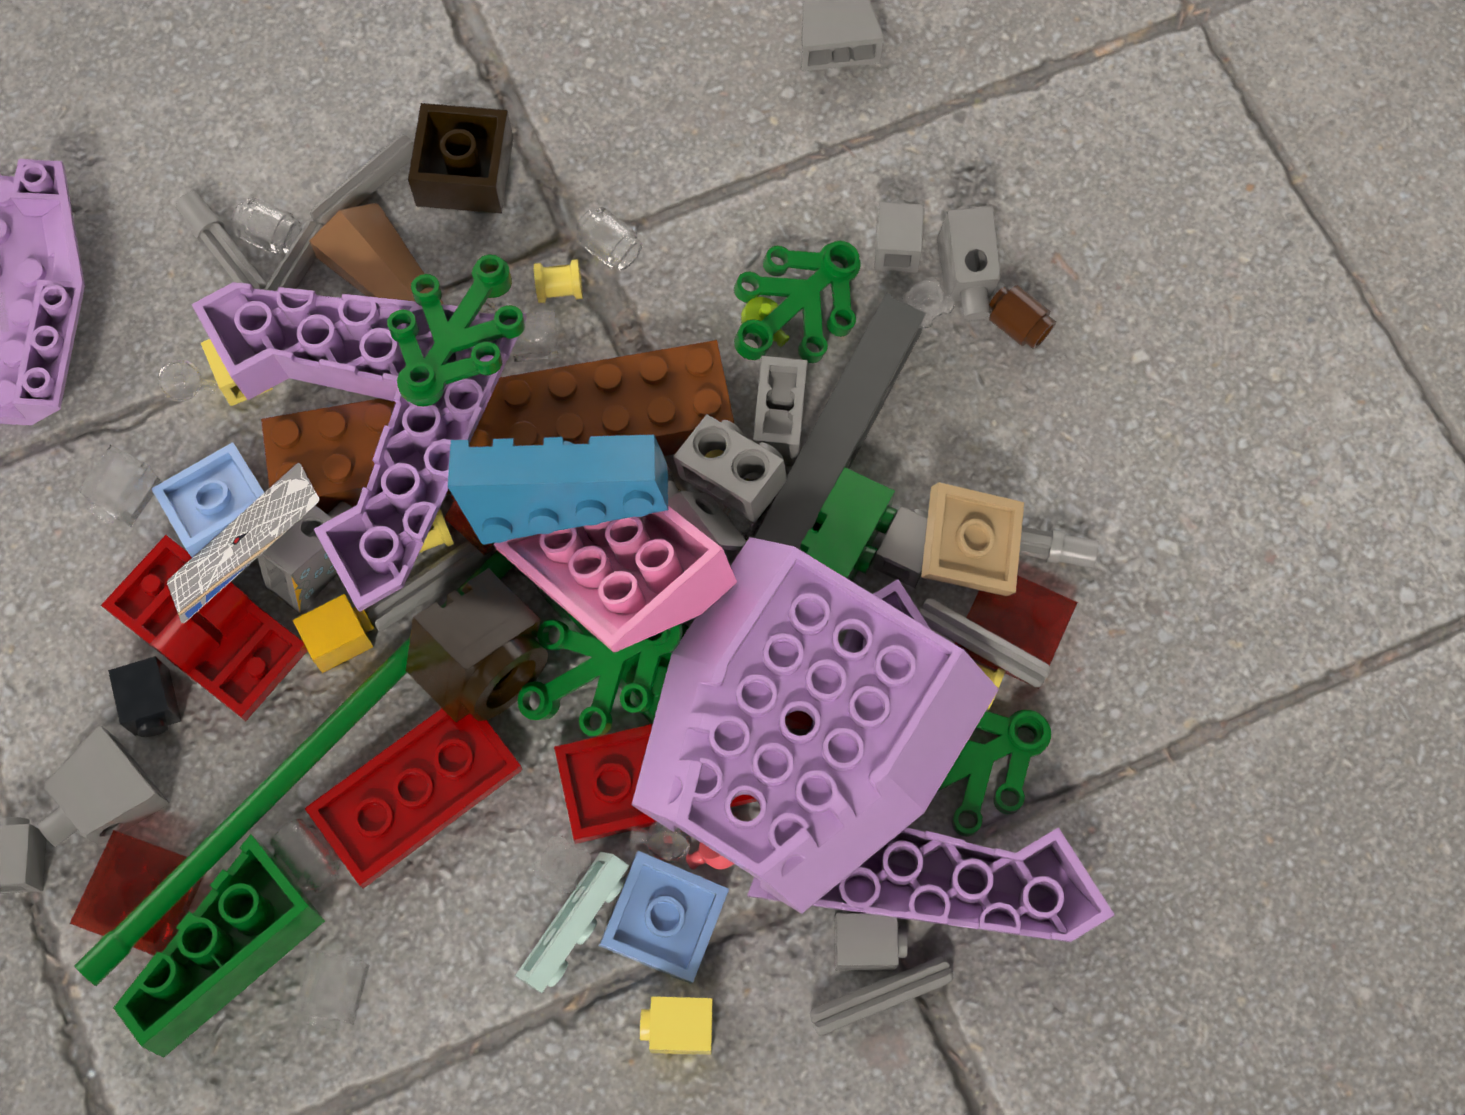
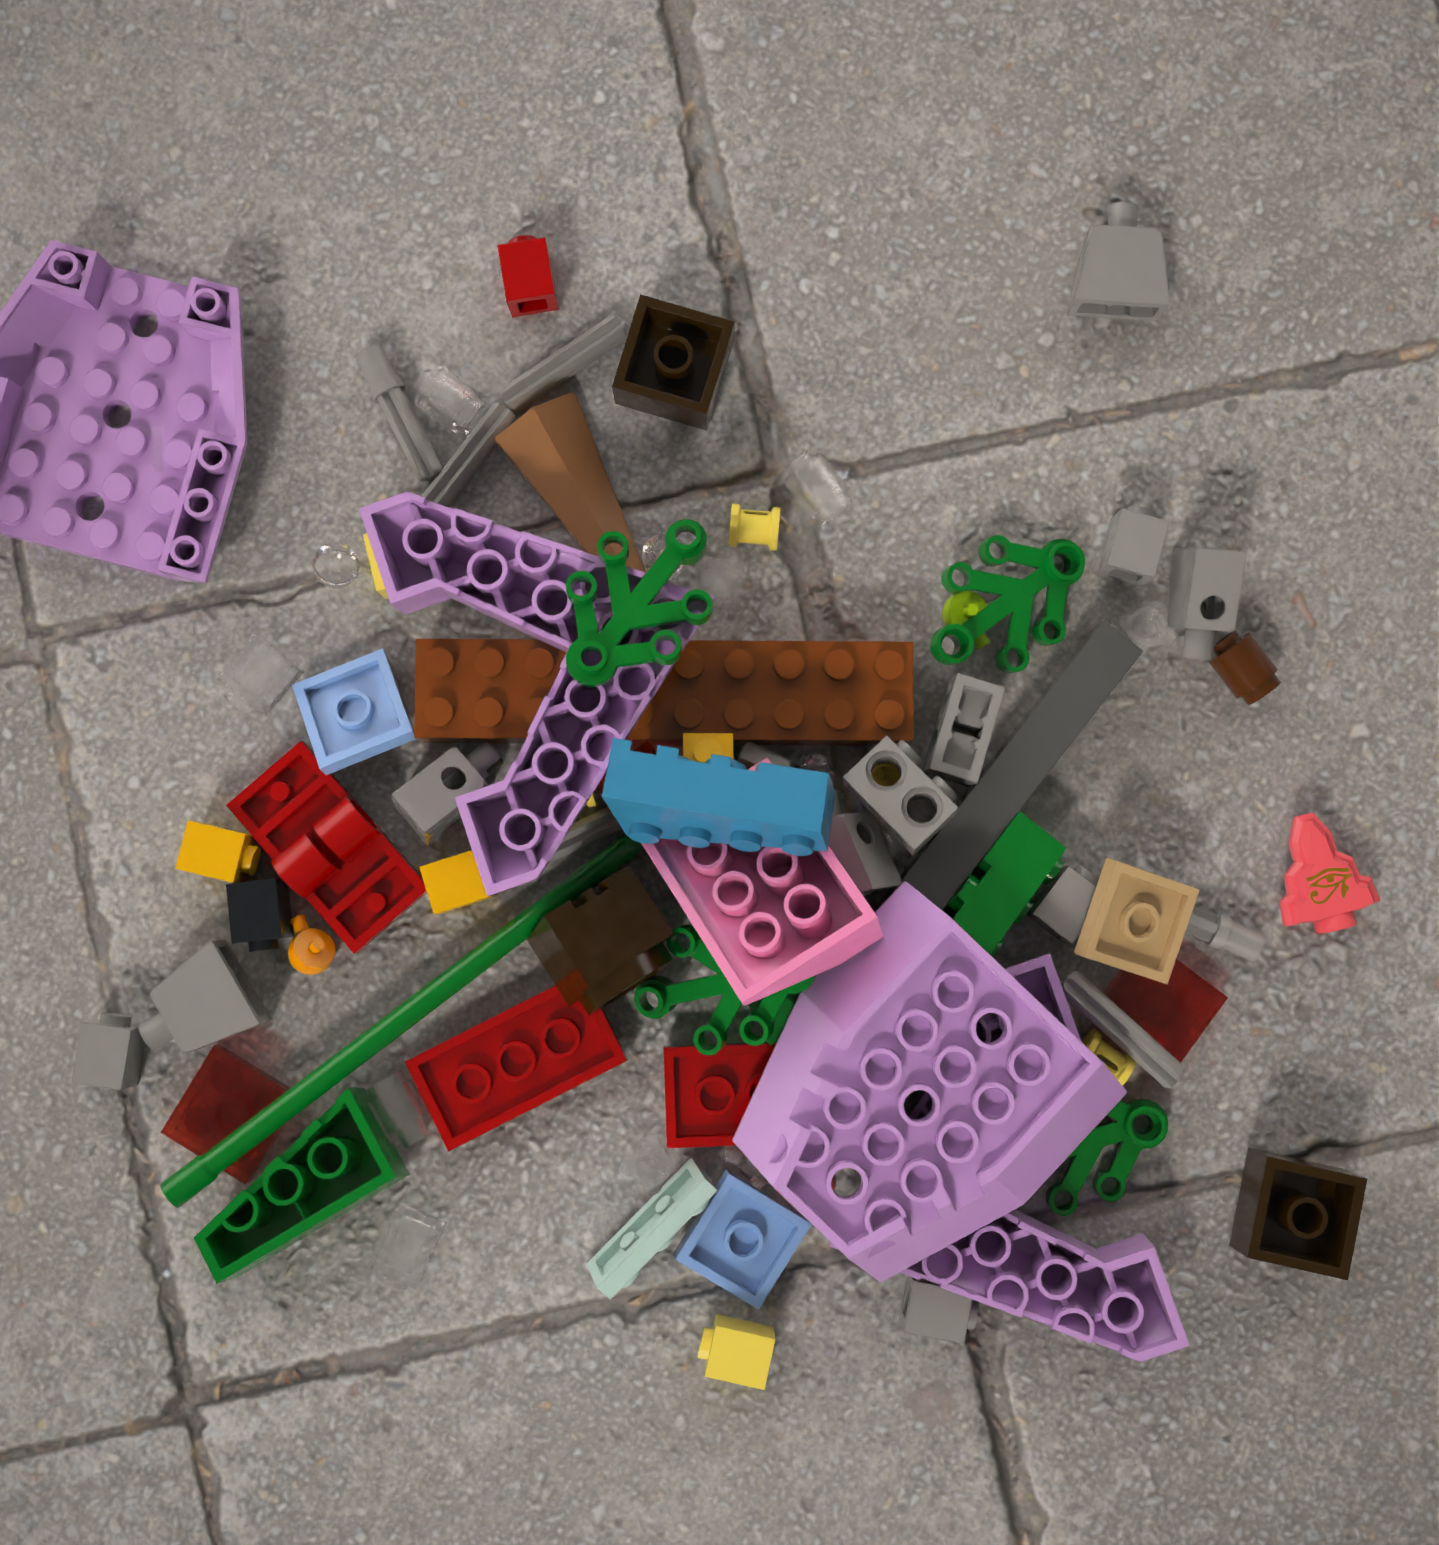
camera: 10 degrees right, 15 degrees up
(95, 647) = (218, 852): none -> yellow brick
(198, 723) = (311, 948): none -> light orange piece
(242, 542) = (379, 781): light grey sticker -> none
(321, 116) = (527, 276): none -> red brick
(881, 995) = (939, 1357): light grey axle -> none
(1138, 484) = (1322, 882): none -> coral rock
(1190, 778) = (1298, 1213): none -> dark brown brick

